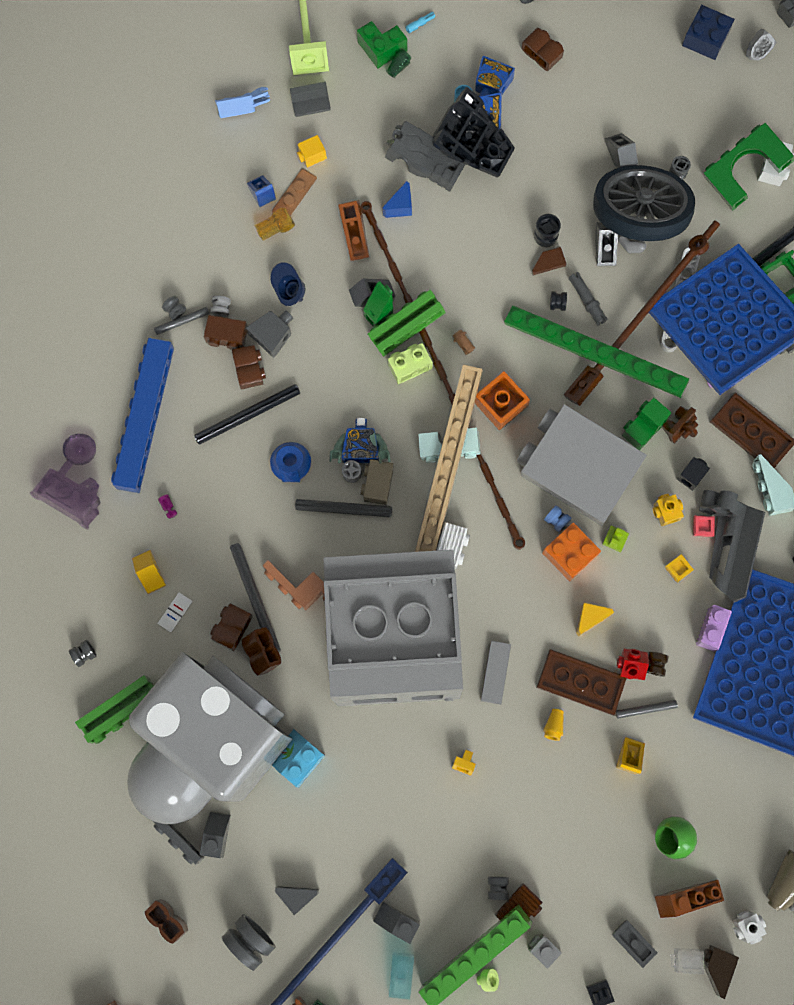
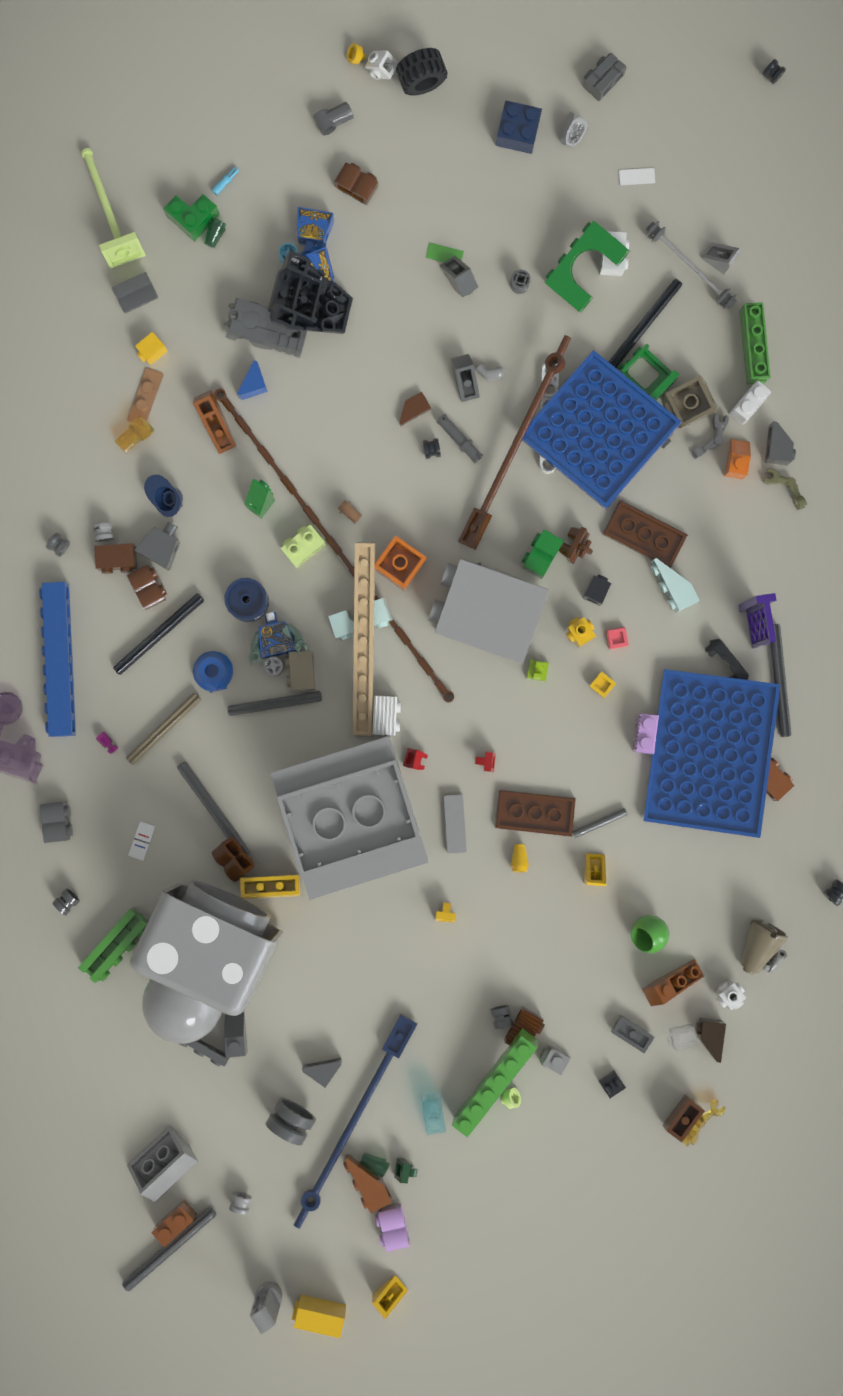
camera: 25 degrees left, 10 degrees up
(95, 571) = (55, 822): none -> dark grey brick
(102, 954) = (161, 1164): none -> light grey slope
(148, 572) = (105, 809): yellow slope -> none
(162, 916) = (215, 1123): reddish brown brick -> none
(182, 320) = (68, 555): dark grey bar -> none
(227, 506) = (163, 728): none -> dark tan axle
(231, 627) = (198, 842): reddish brown brick -> none
(242, 104) = (67, 314): light blue arm -> none
(262, 190) = (111, 401): blue slope -> none
(291, 688) = (270, 887): none -> yellow brick
(298, 759) = (292, 948): medium azure slope -> none
(304, 594) = (259, 795): nougat bracket -> none
(352, 400) = (248, 588): none -> dark blue wheel
(363, 289) = (241, 482): dark grey slope -> none
(397, 923) = (418, 1070): dark grey slope -> none
(406, 322) = (289, 507): bright green brick -> none
(469, 595) = (413, 759): none -> red tile
(544, 617) = (488, 761): none -> red tile
(547, 230) = (404, 378): black wheel -> none
(557, 518) = (476, 661): medium blue wheel -> none
(571, 551) = (499, 694): orange brick -> none
(591, 616) = (530, 751): yellow slope -> none
(597, 351) = (479, 493): green plate -> none
(608, 128) = (442, 253): none -> bright green sticker
(633, 664) = (579, 786): red brick -> none
(643, 202) = (492, 330): wheel -> none
(657, 664) = (600, 784): dark brown wheel -> none
(739, 528) = (649, 633): dark grey panel -> none

